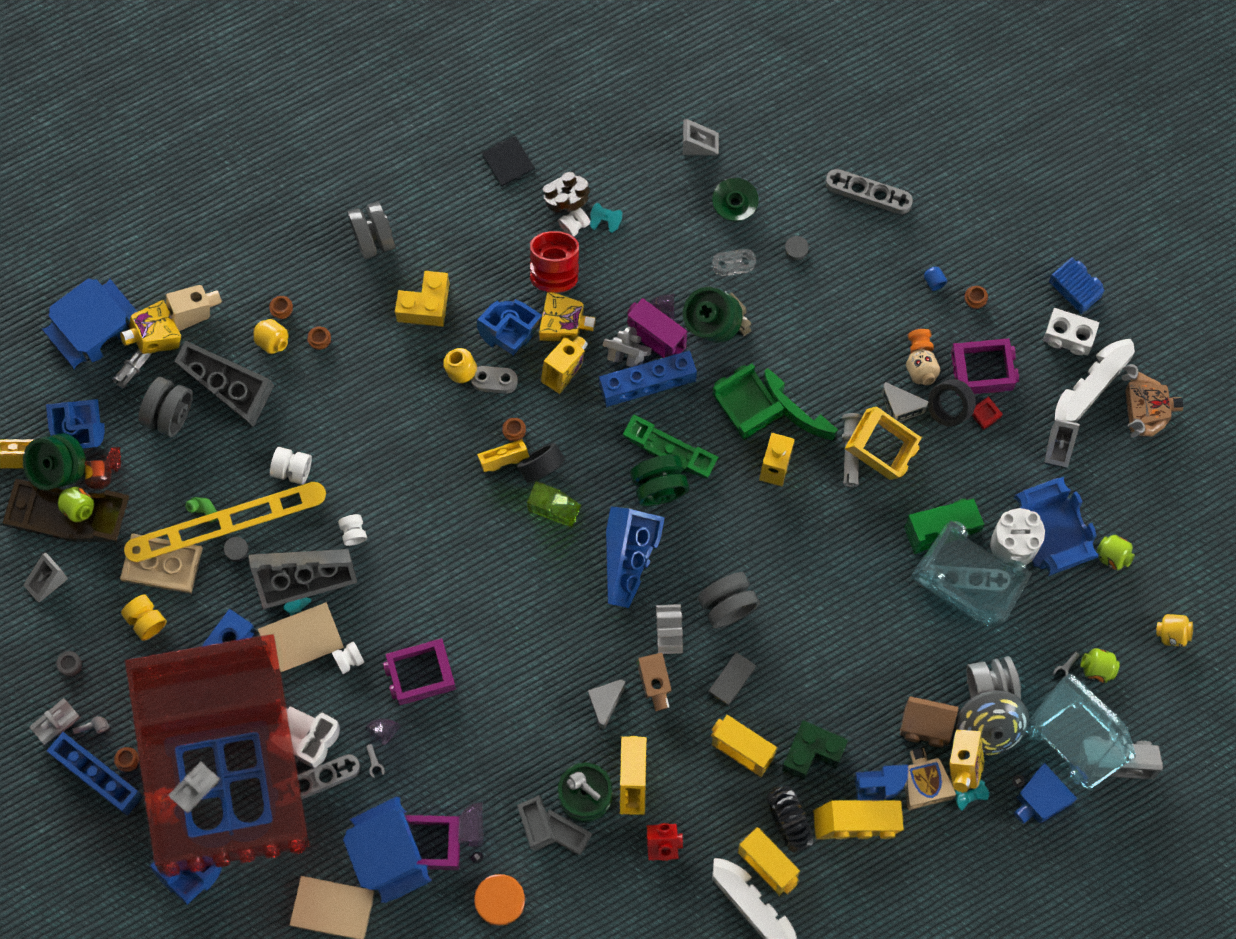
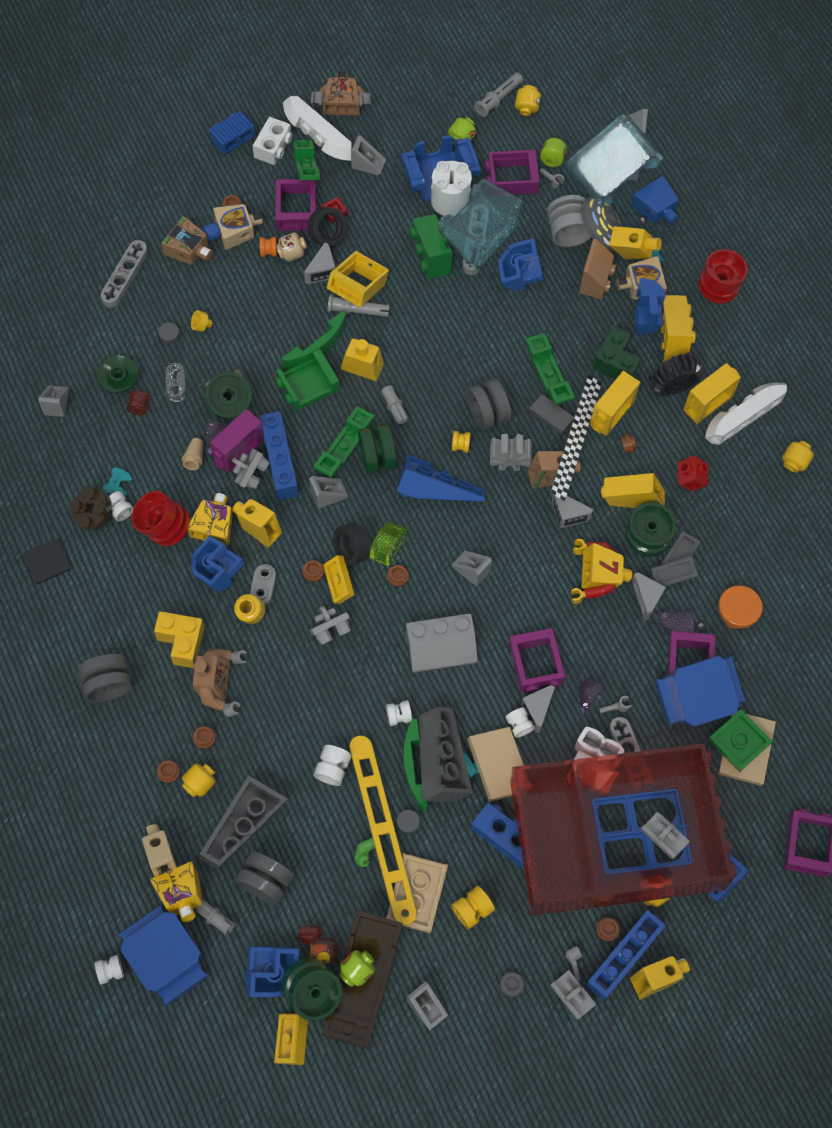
camera: 90 degrees left, 5 degrees down
(67, 802) = (658, 976): none -> yellow torso
(76, 273) = (108, 969): none -> white wheel
(299, 543) = (412, 740): none -> green slope
(334, 895) = (740, 740): none -> green plate
(365, 675) = (537, 706): none -> light grey slope
(380, 335) = (211, 678): none -> medium nougat torso
(434, 569) = (441, 643): none -> light grey slope
(443, 442) = (321, 631): none -> light grey hips
(506, 793) = (647, 593): none -> light grey slope
(514, 519) = (397, 575): none -> dark orange plate
(529, 597) = (473, 566): none -> light grey slope
(531, 738) = (600, 570): none -> yellow torso
(579, 780) = (647, 526): light grey hand -> none
(609, 434) = (327, 490): none -> light grey slope
(642, 289) = (193, 455): none -> tan cone
(684, 575) = (461, 441): none -> yellow wheel
(693, 701) = (576, 438): none -> sticker
(698, 767) = (628, 443): none -> dark orange plate
(701, 225) = (138, 403): none -> clear red wheel
(726, 499) = (394, 404): none -> light grey axle
(788, 673) = (547, 369): none -> green slope
(812, 278) = (200, 321): none -> yellow tile
(915, 252) = (186, 243): none -> medium nougat torso
(926, 631) = (520, 265): none -> blue brick
(946, 302) = (236, 224): none -> tan torso
(949, 869) = (722, 276): none -> red wheel
(1041, 372) = (305, 160): none -> green slope
(1067, 640) = (514, 158): none -> magenta window
(1169, 590) = (493, 99): none -> light grey pin

